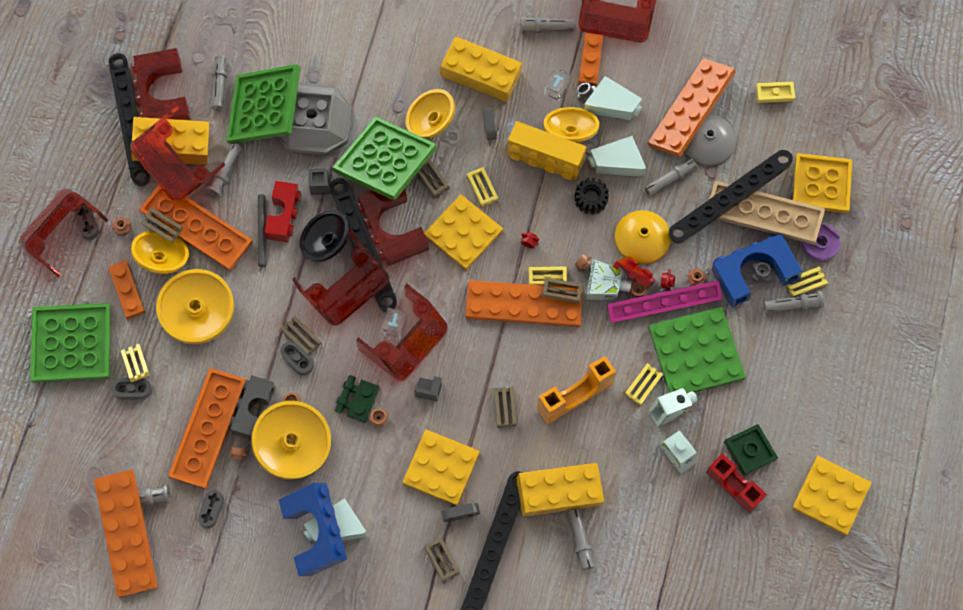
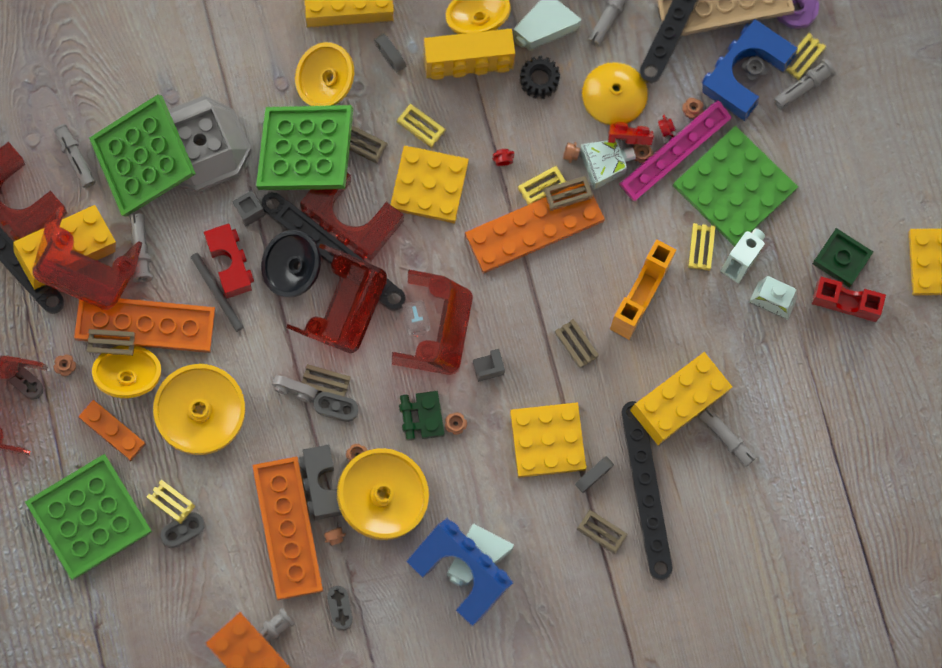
camera: 35 degrees left, 5 degrees up
(279, 334) = (303, 391): none -> light grey plate

